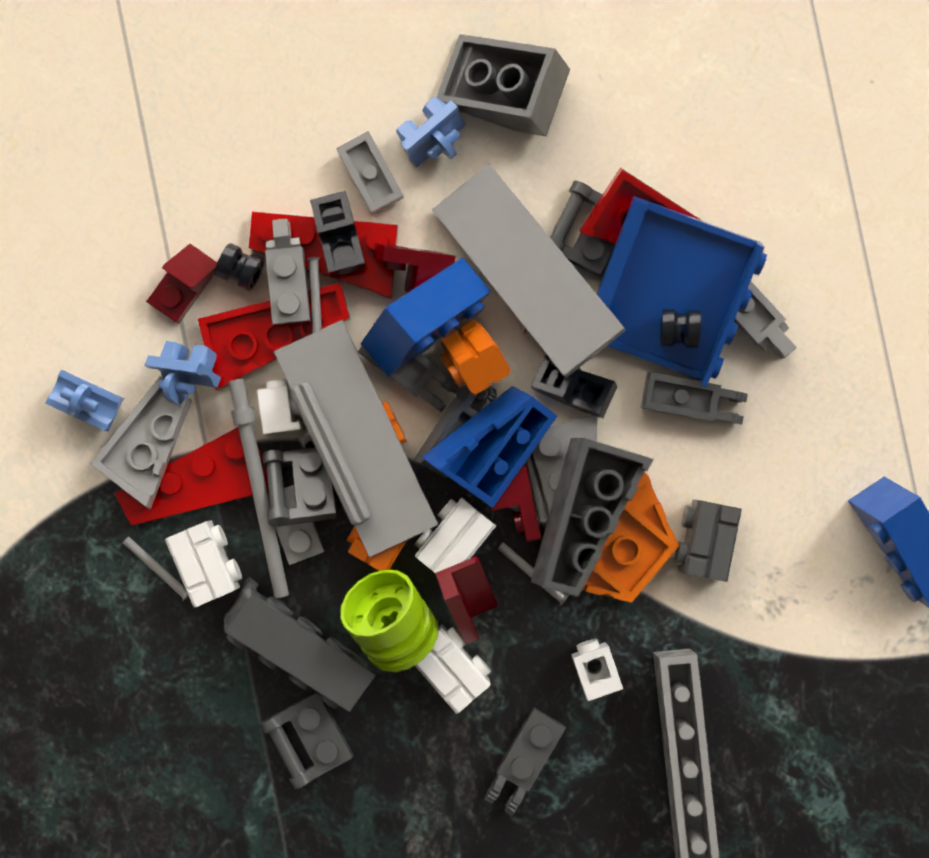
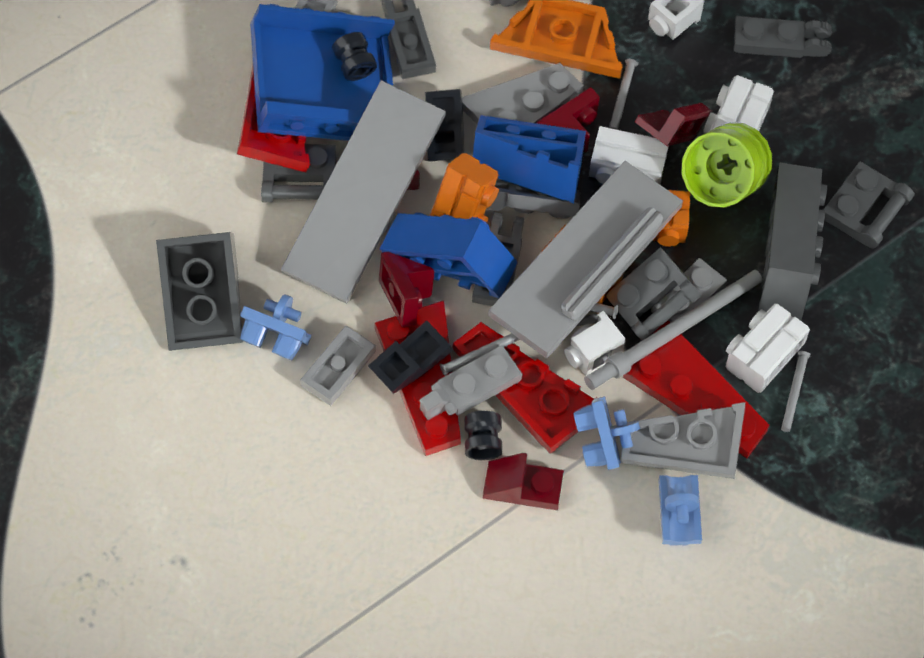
camera: 120 degrees left, 25 degrees down
(585, 511) = (553, 58): dark grey wedge -> none

